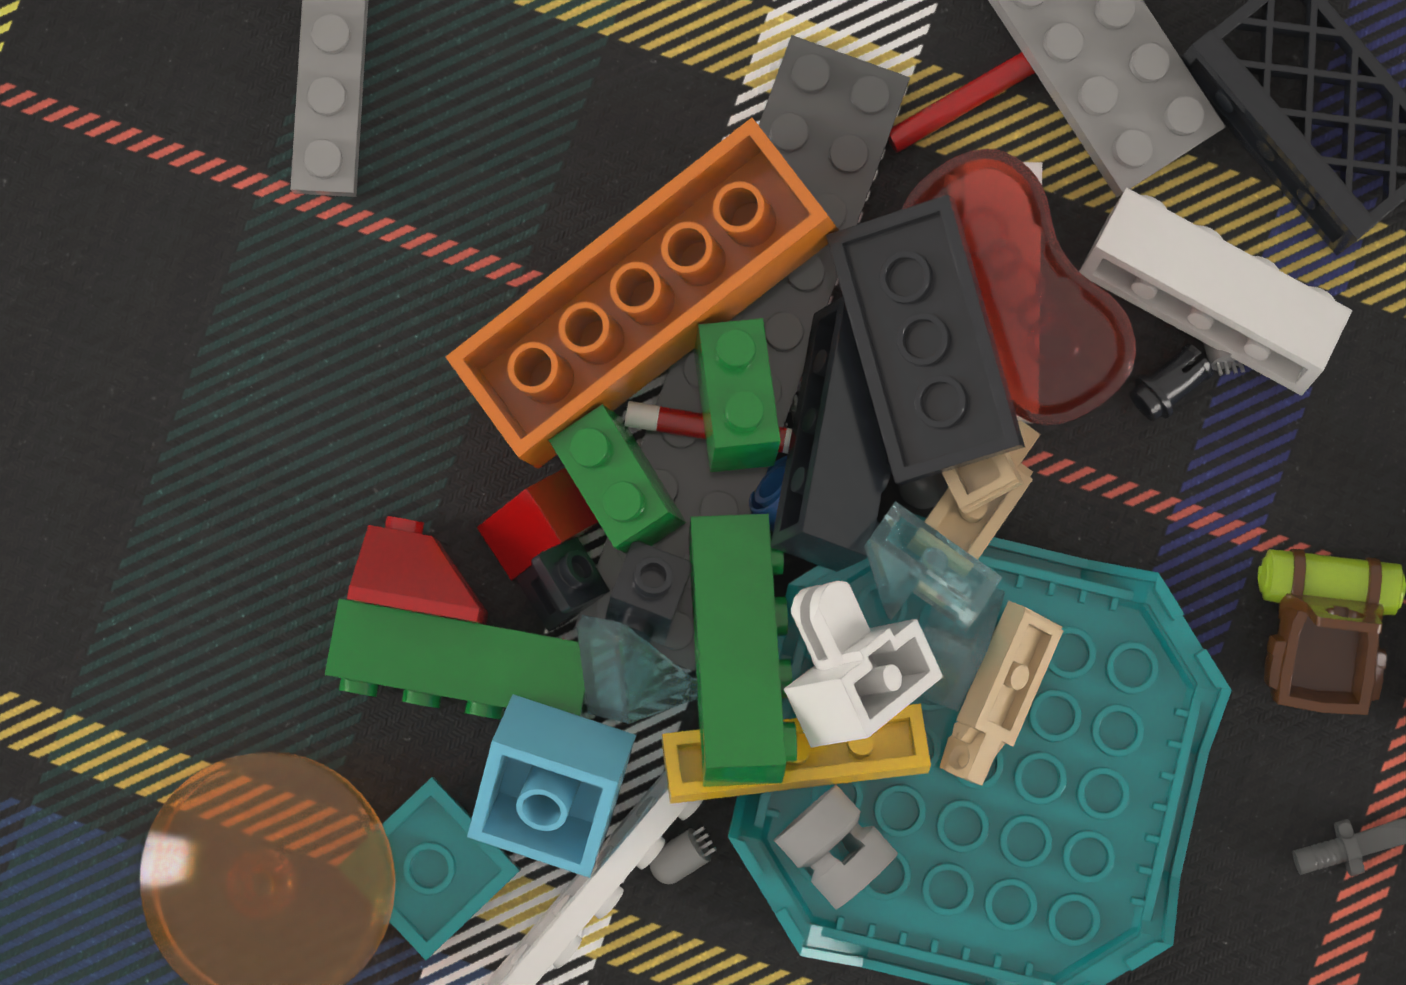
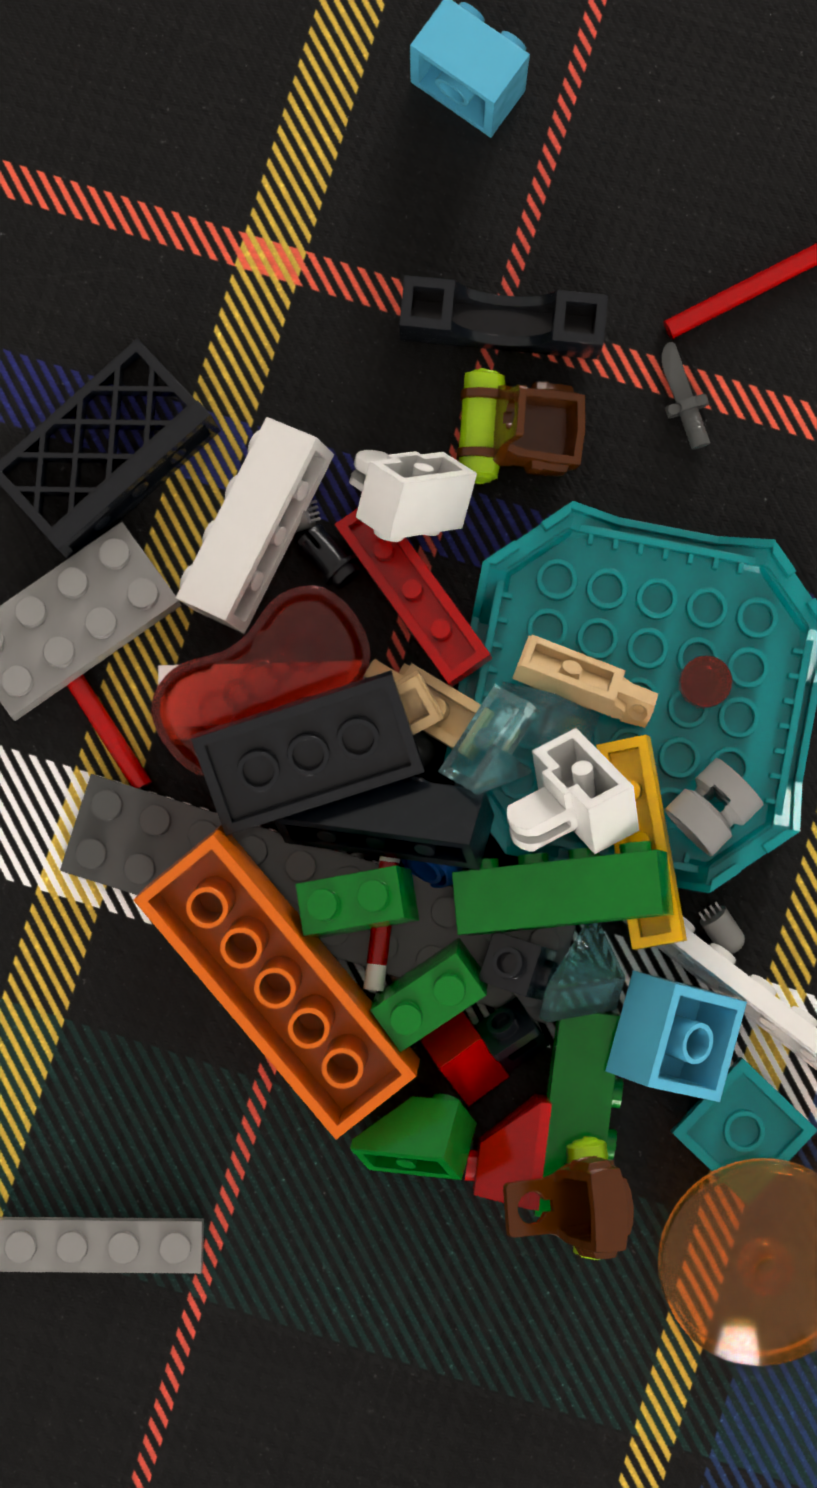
camera: 90 degrees left, 0 degrees up
(354, 658) = (587, 1202): none -> reddish brown piece
(440, 462) = (419, 1139): none -> green slope
(994, 847) = (705, 681): none -> clear red tile
(1123, 485) = (417, 600): none -> red plate
(1248, 488) = (411, 493): none -> white brick

